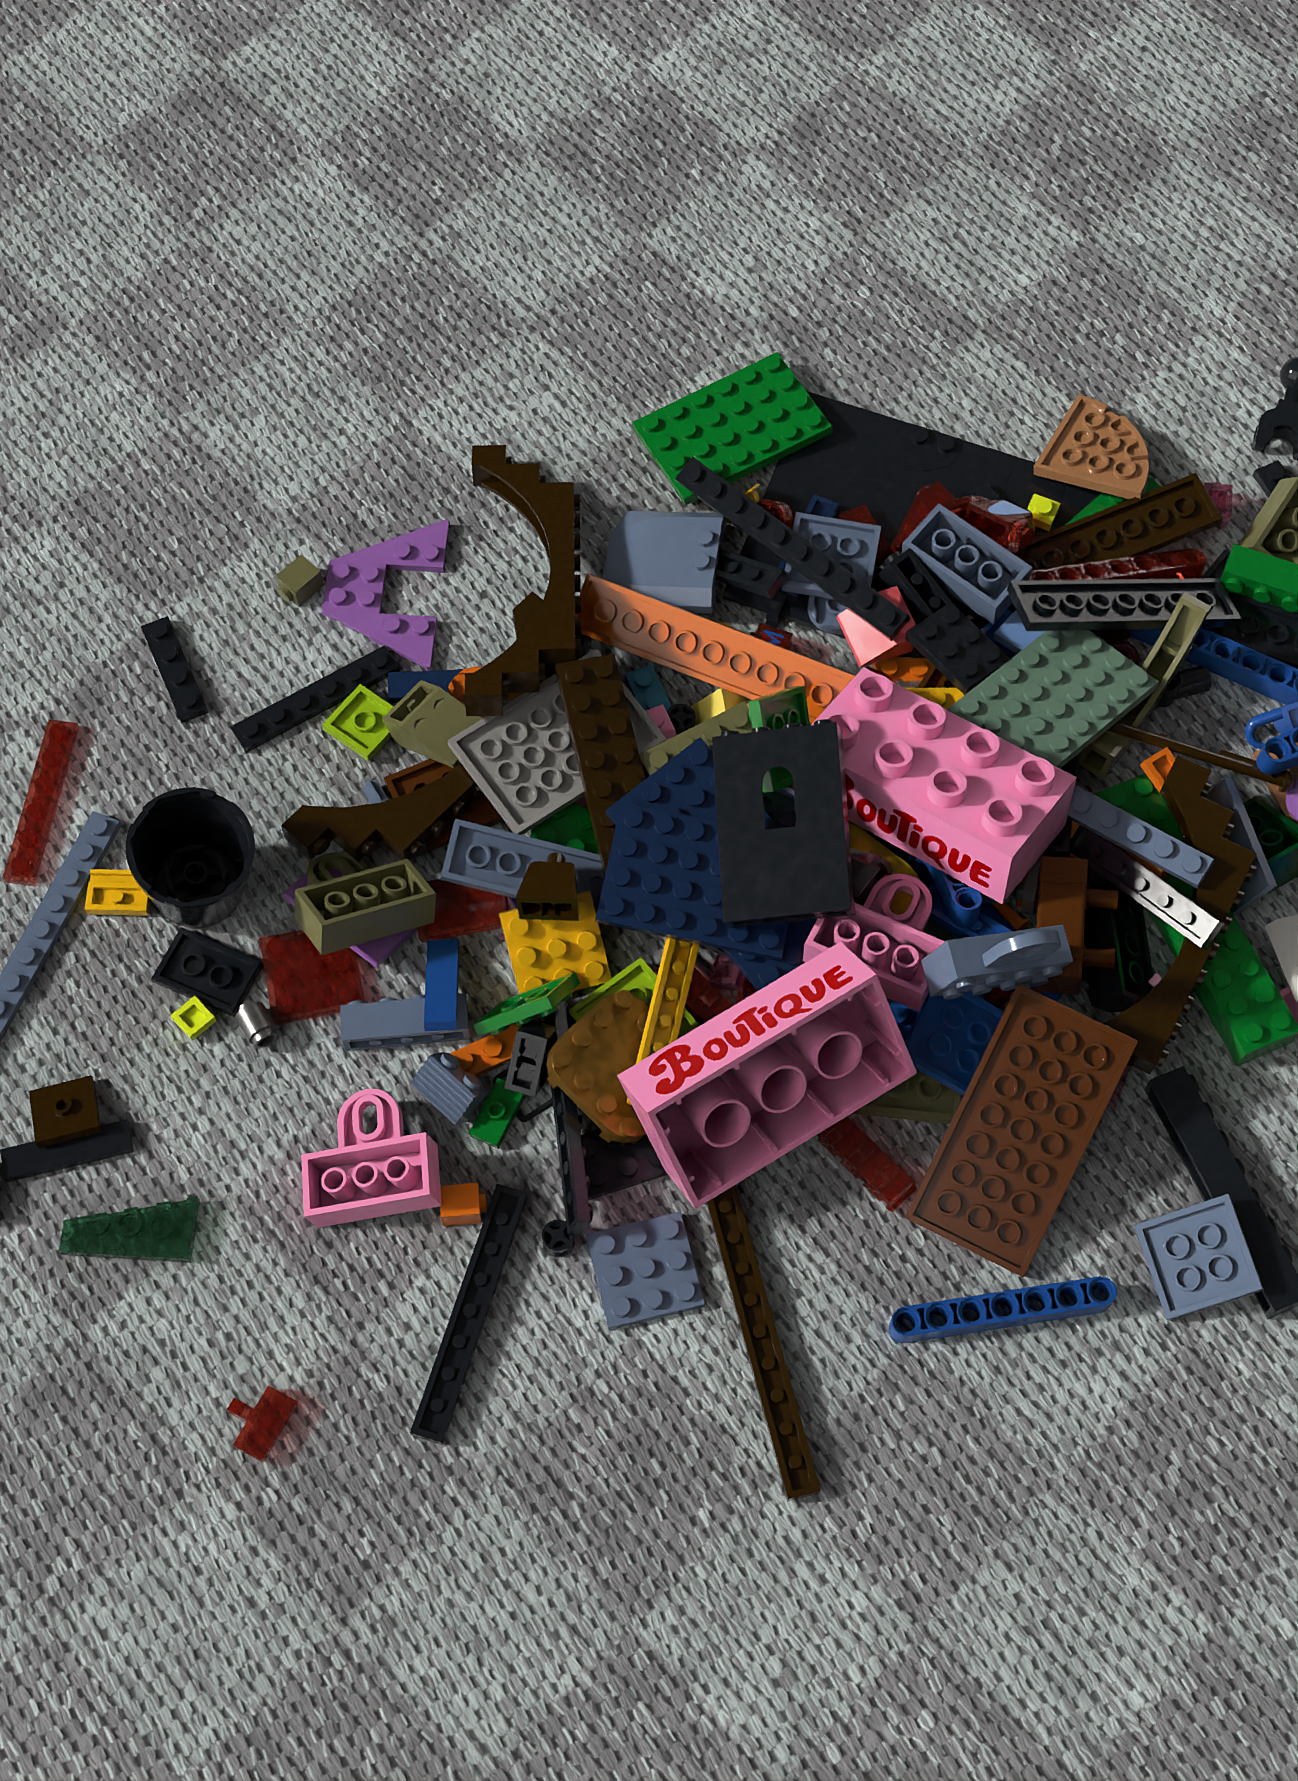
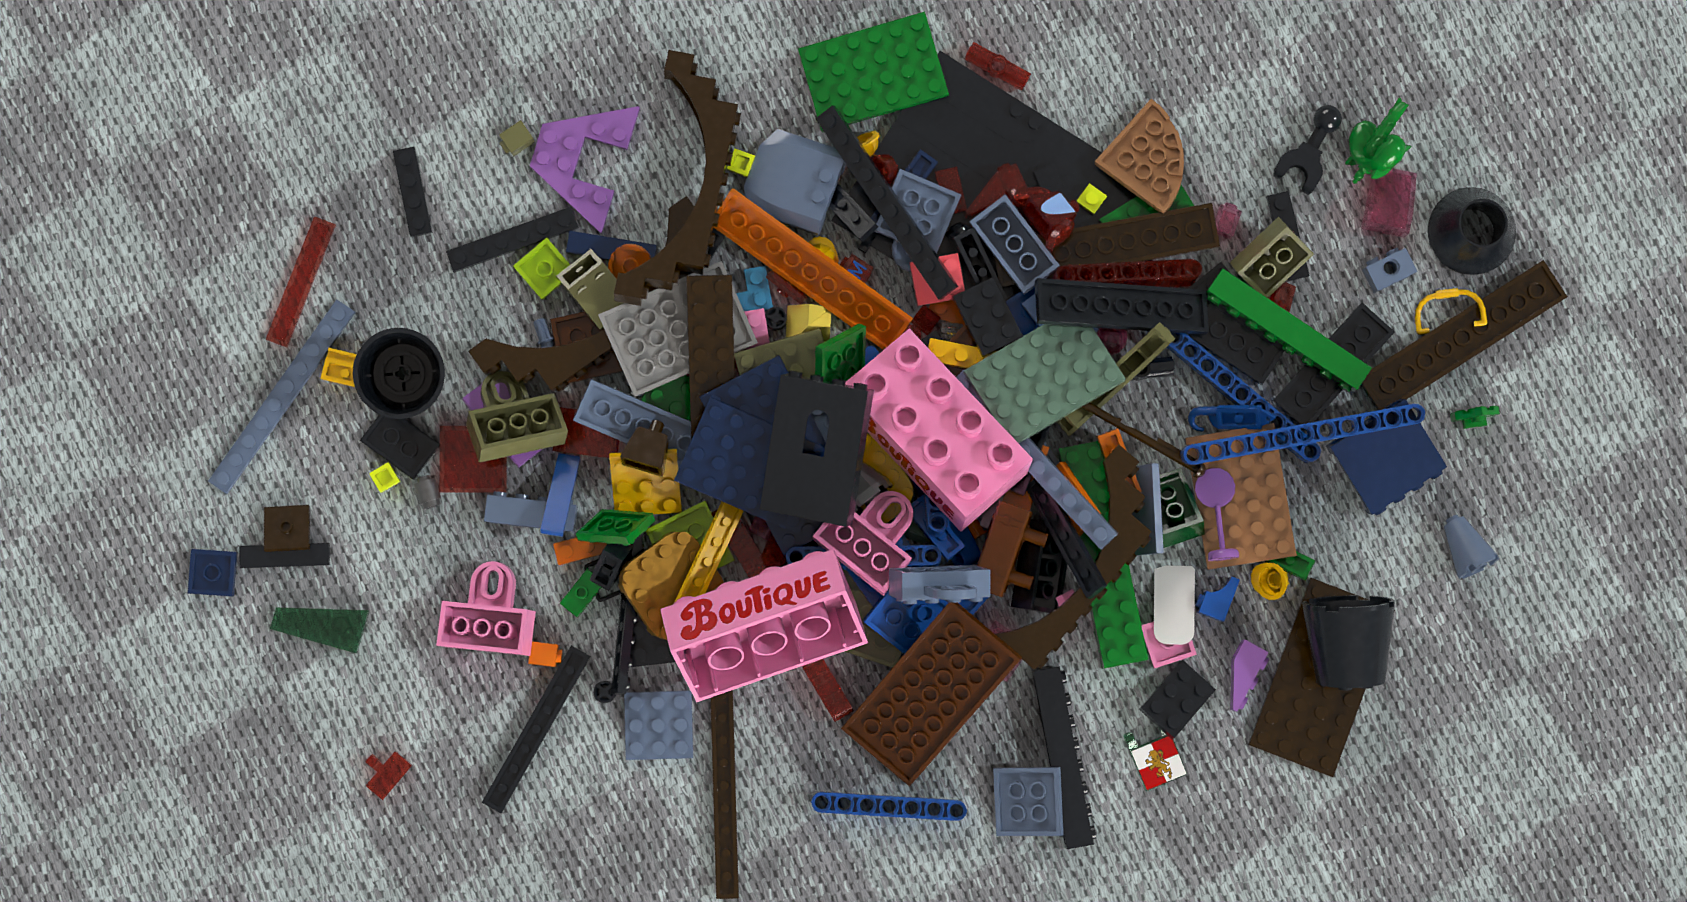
camera: 10 degrees right, 20 degrees up
(449, 1087) = (552, 570): sand blue brick -> none
(593, 555) = (741, 163): none -> neon yellow plate
(683, 681) = (786, 288): none -> clear red plate
(881, 395) = (985, 58): none -> clear red piece

